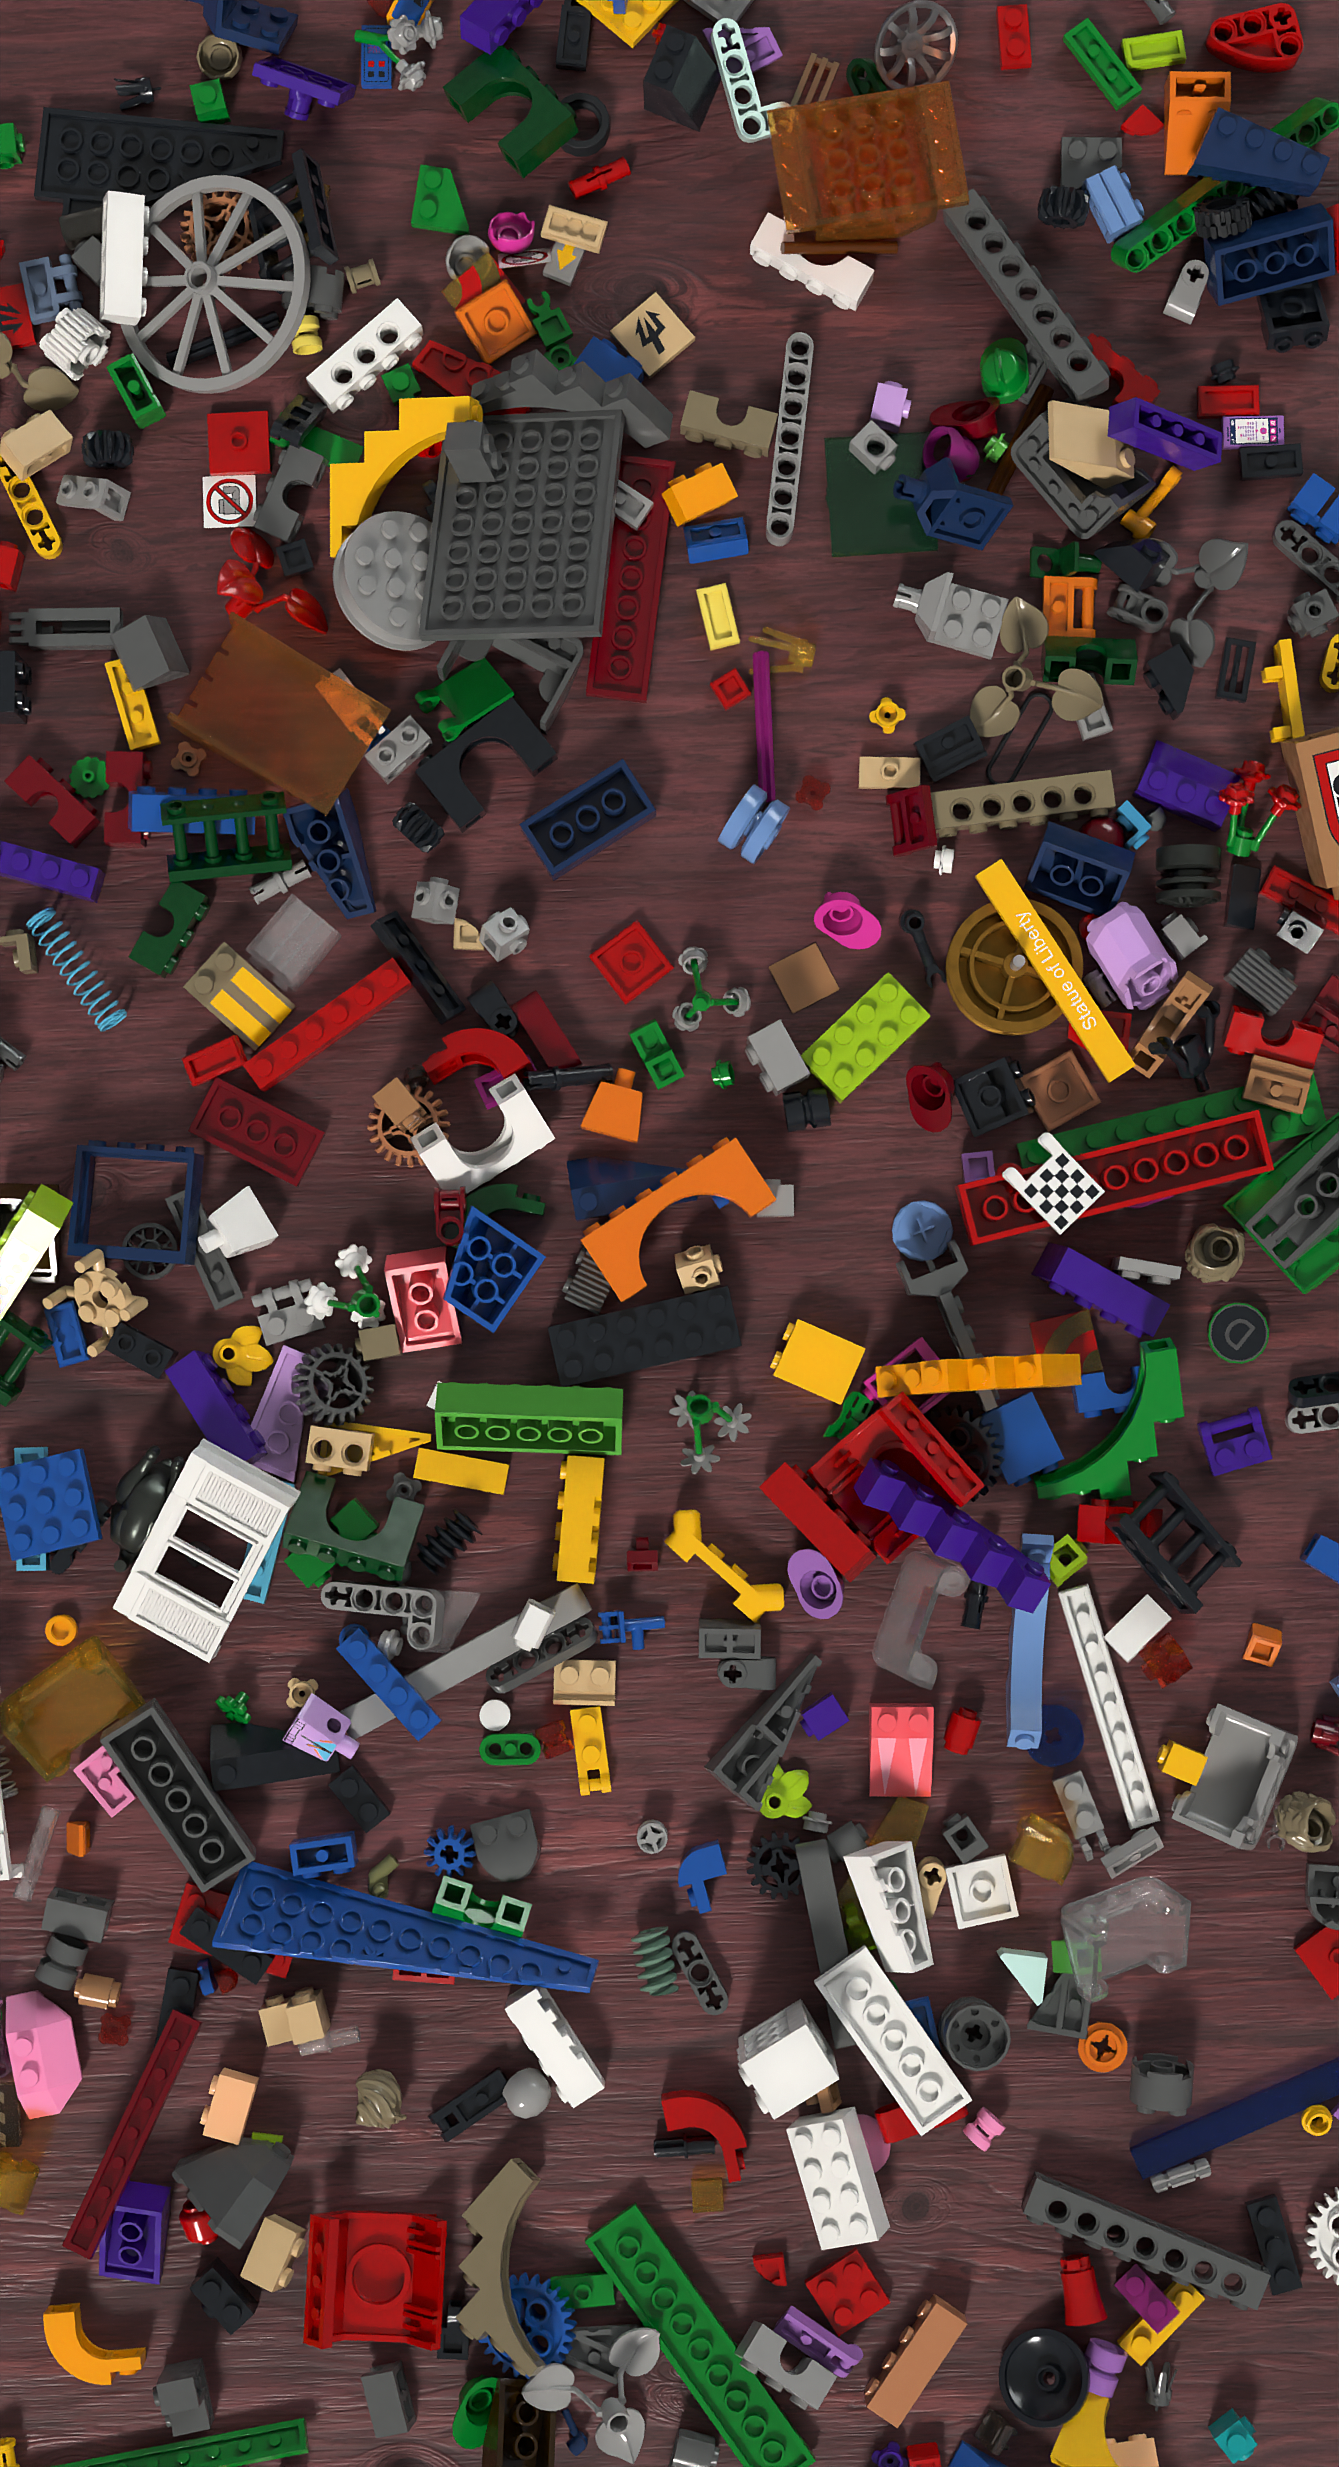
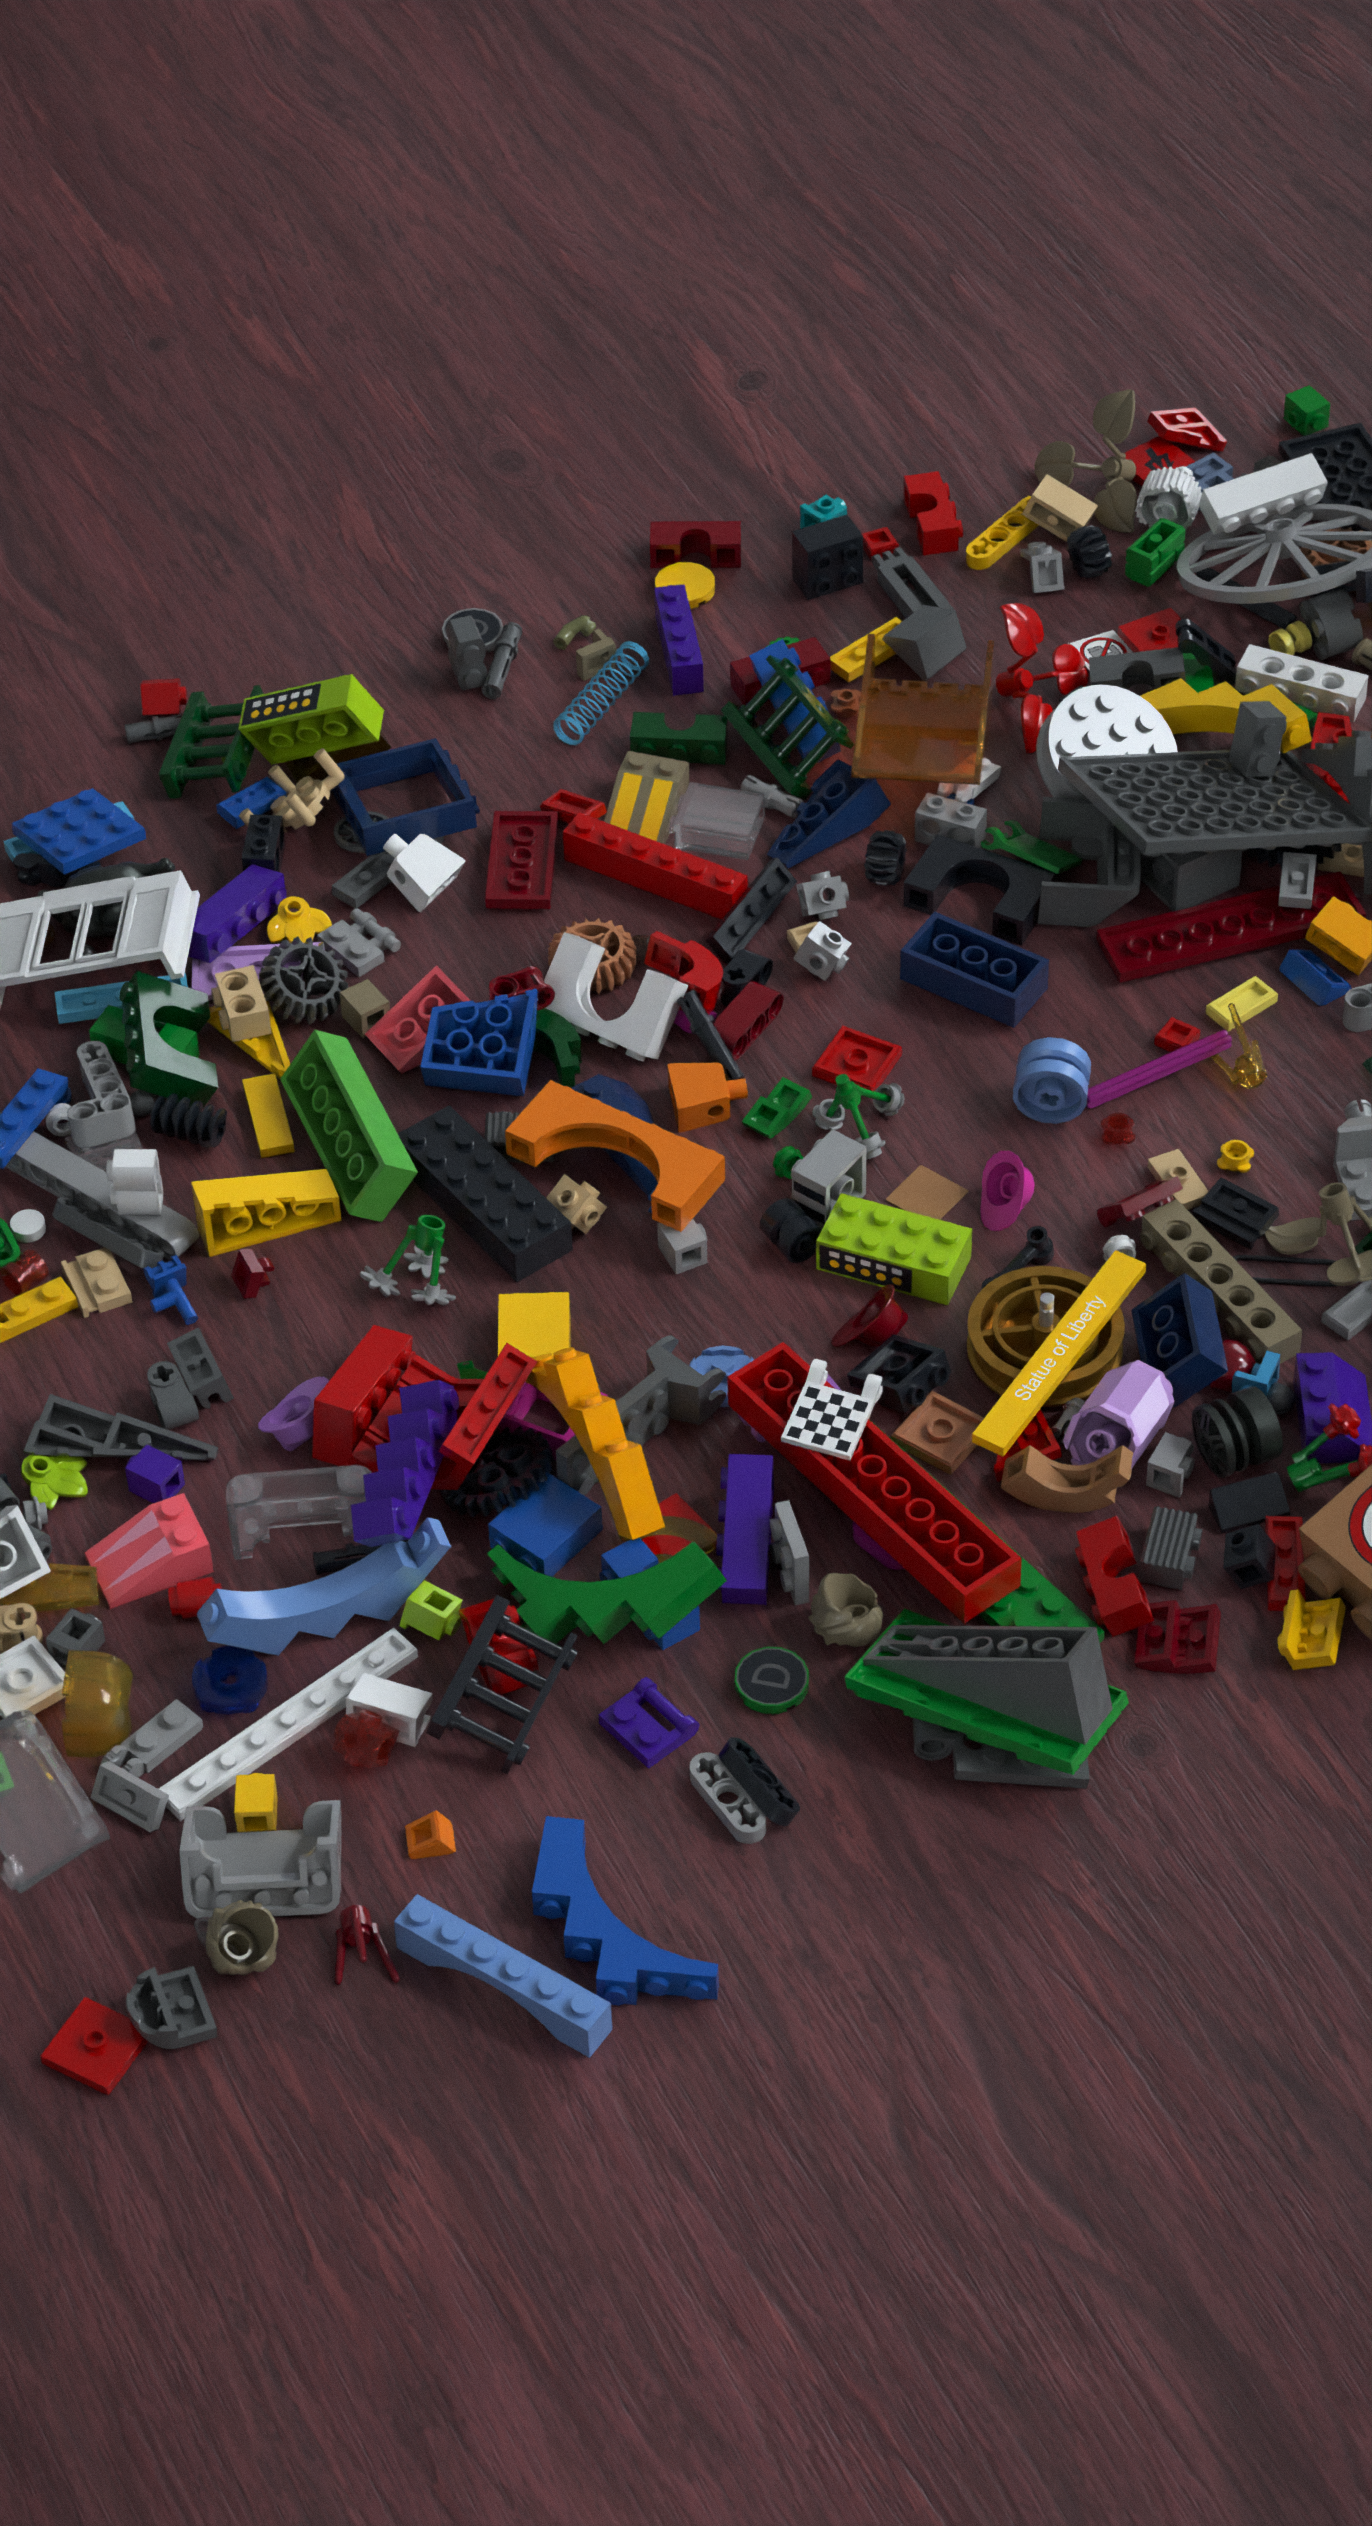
camera: 65 degrees right, 40 degrees down
(33, 781) = (754, 618): dark red arch -> none
(364, 1305) = (392, 948): white plant -> none
(400, 1106) = (600, 882): medium nougat arch -> none
(401, 1481) = (228, 1080): dark grey plate -> none
(752, 1599) = (252, 1369): yellow plate -> none
(1189, 1052) = (1050, 1514): black piece -> none
(1277, 1084) = (1063, 1590): medium nougat plate -> none

